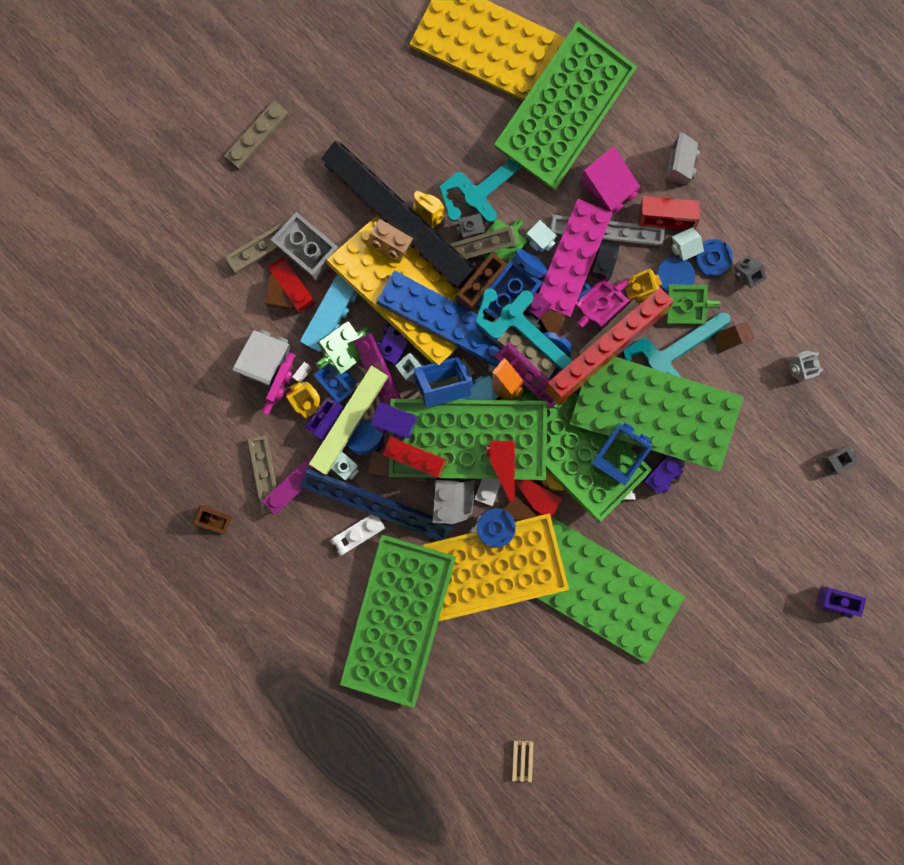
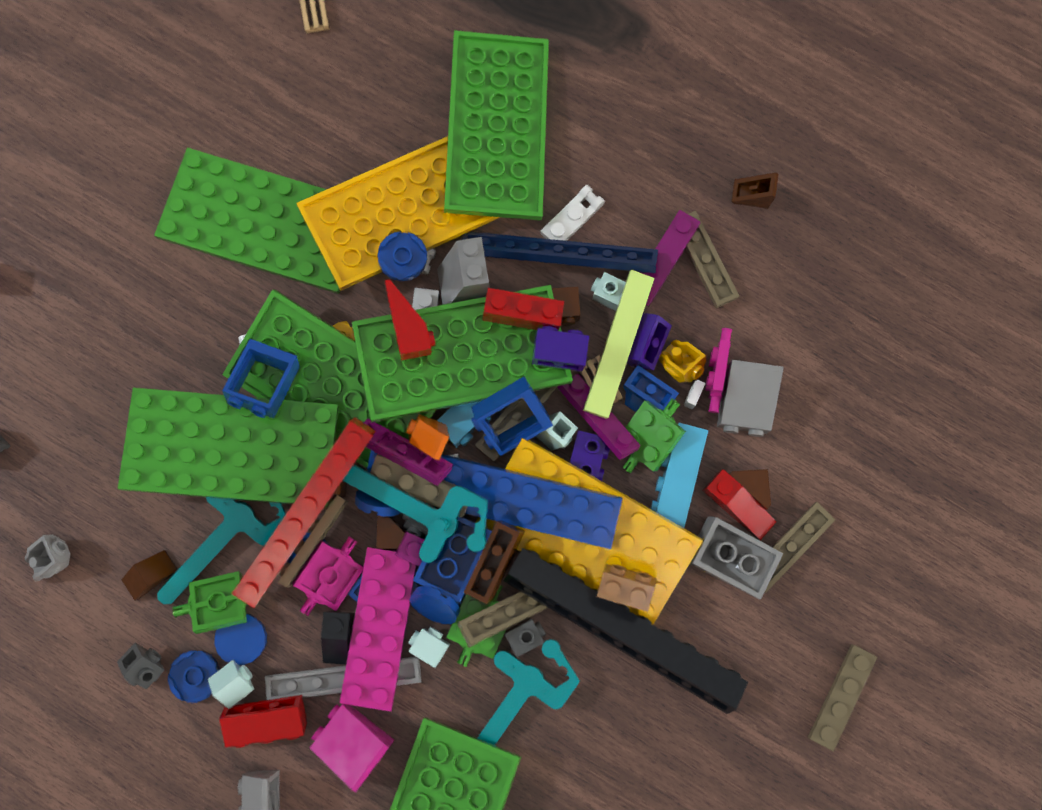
camera: 170 degrees right, 5 degrees down
(365, 439) = (595, 323): blue tile -> none
(428, 208) = (586, 648): yellow hand -> none
(518, 509) = (375, 287): reddish brown slope -> none
(538, 498) = (353, 306): red slope -> none
(642, 285) = (279, 611): yellow hand -> none
(662, 474) = (207, 373): dark purple brick -> none

